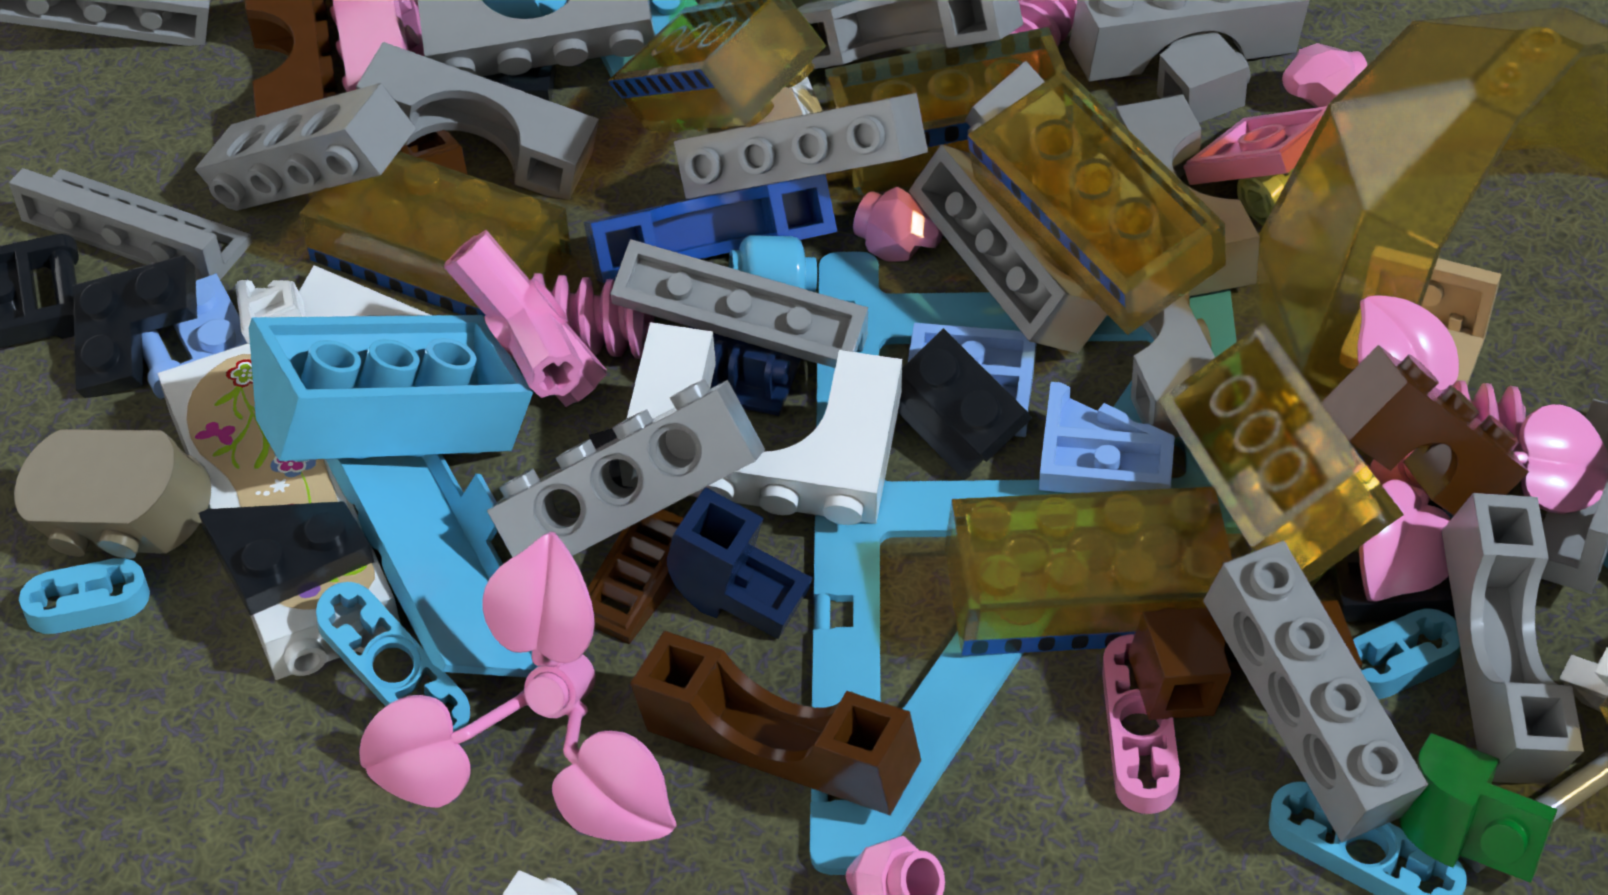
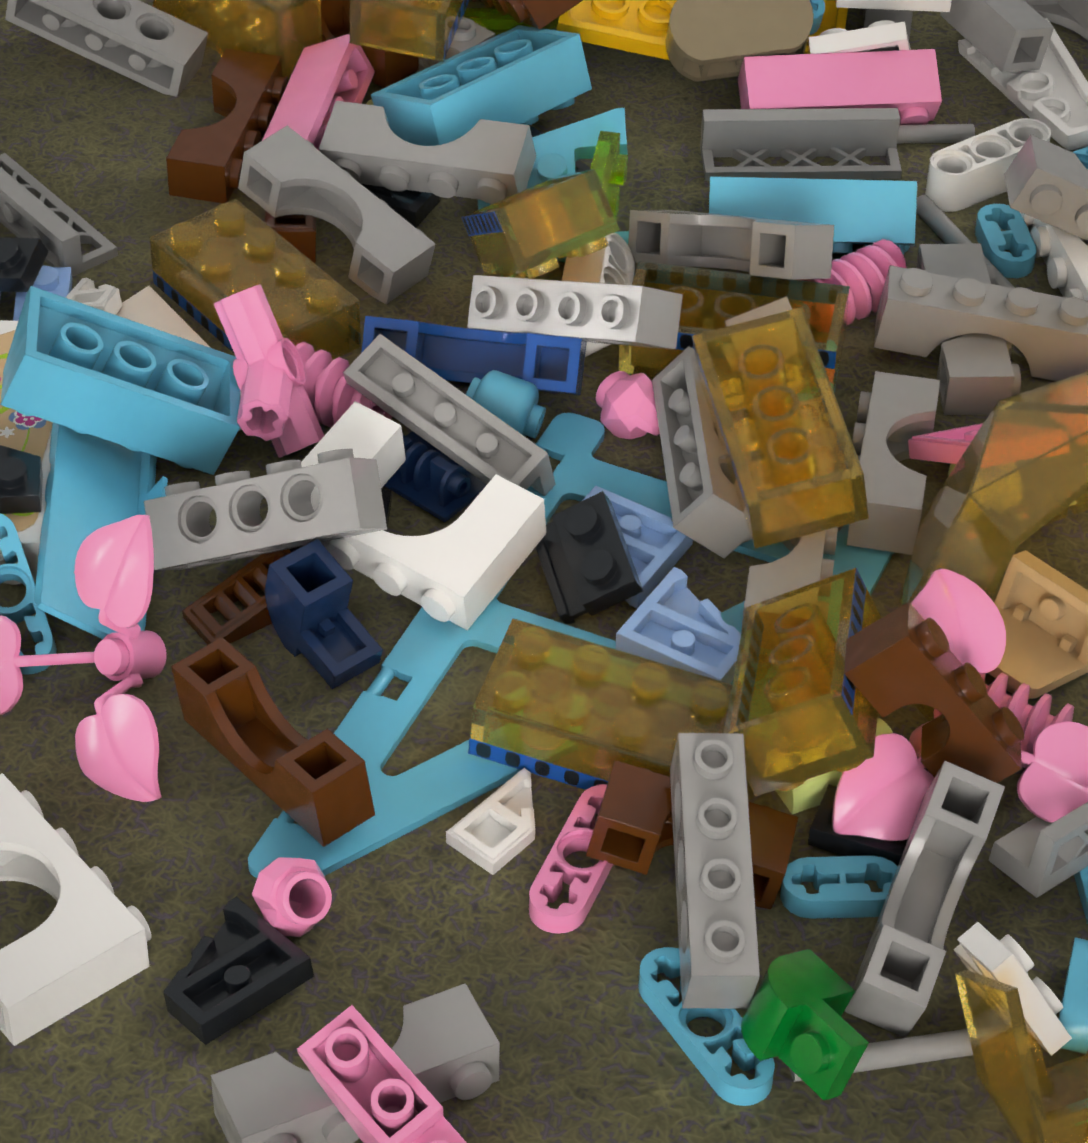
camera: 20 degrees right, 5 degrees down
(306, 148) = (181, 188): light grey brick -> none
(1036, 721) = (497, 826): none -> white tile

